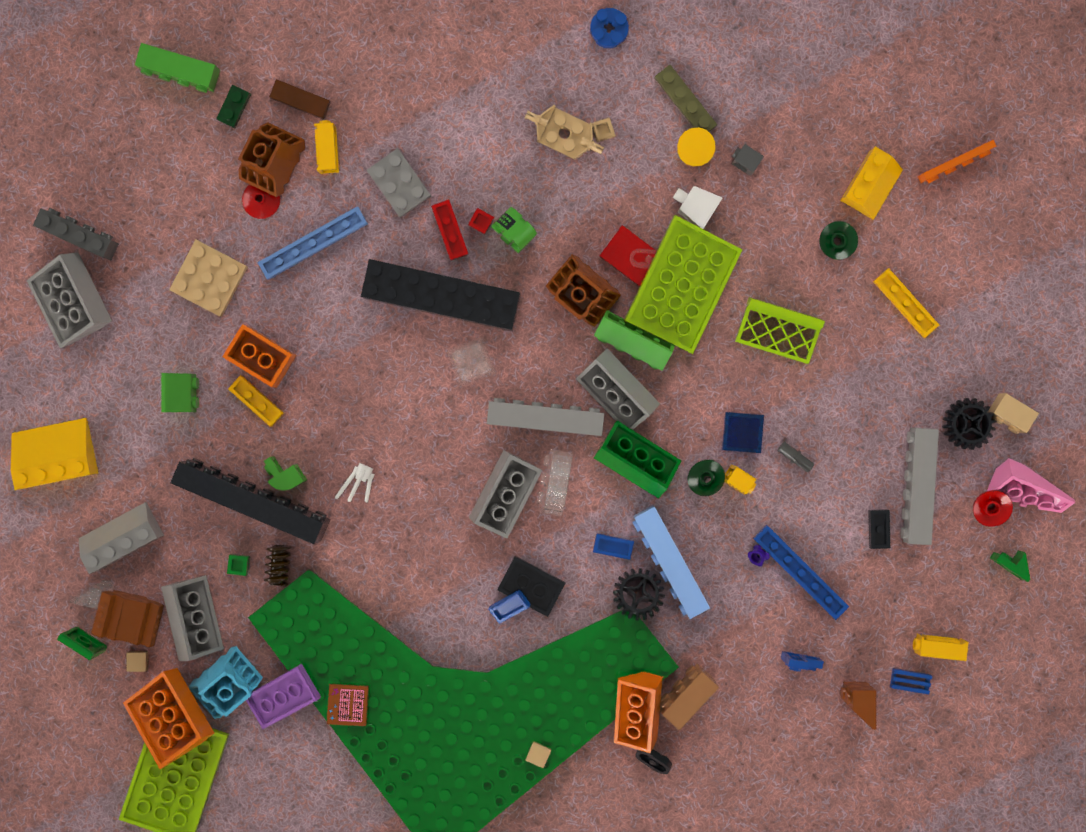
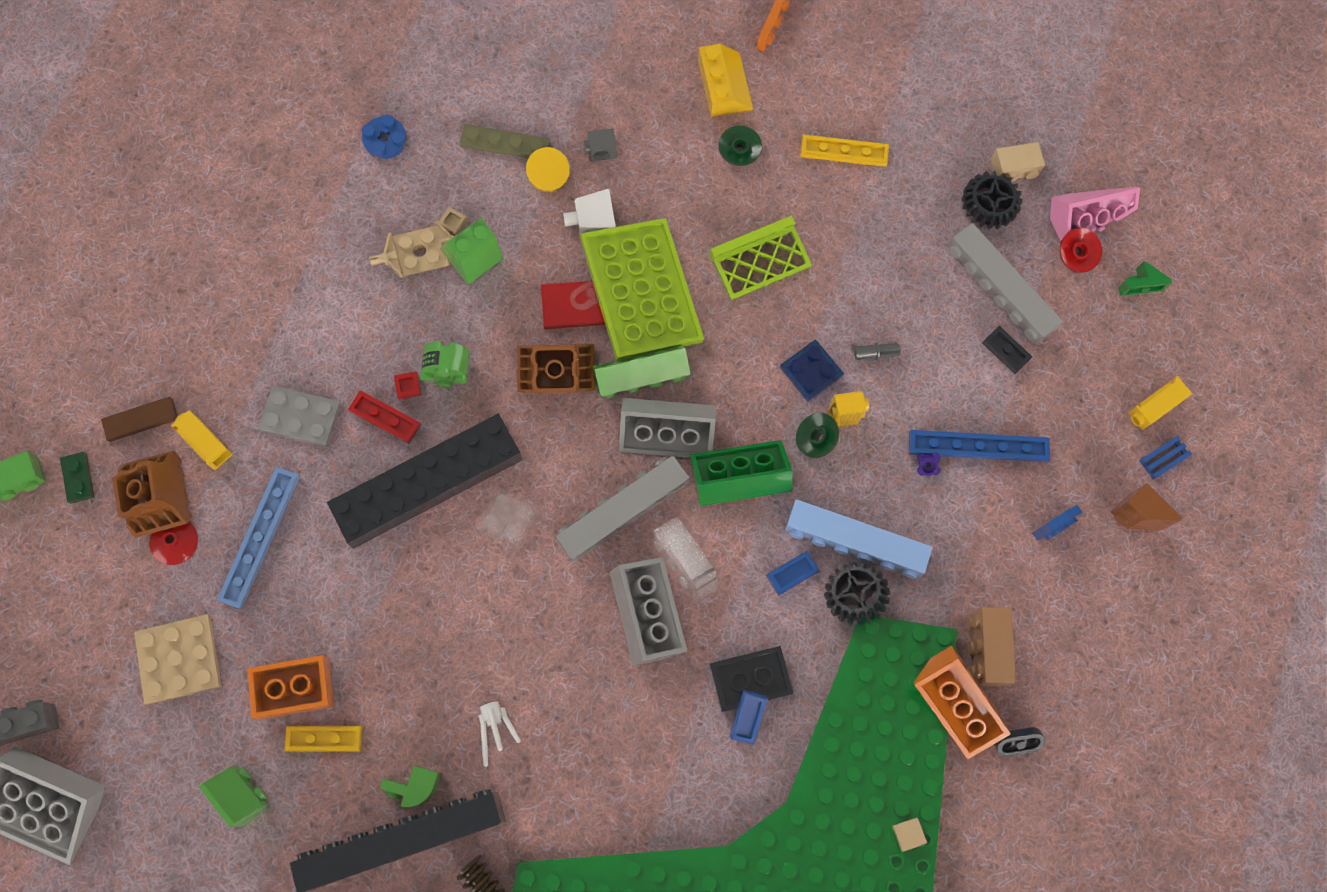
camera: 45 degrees left, 15 degrees down
(597, 165) = (473, 251): none -> bright green slope

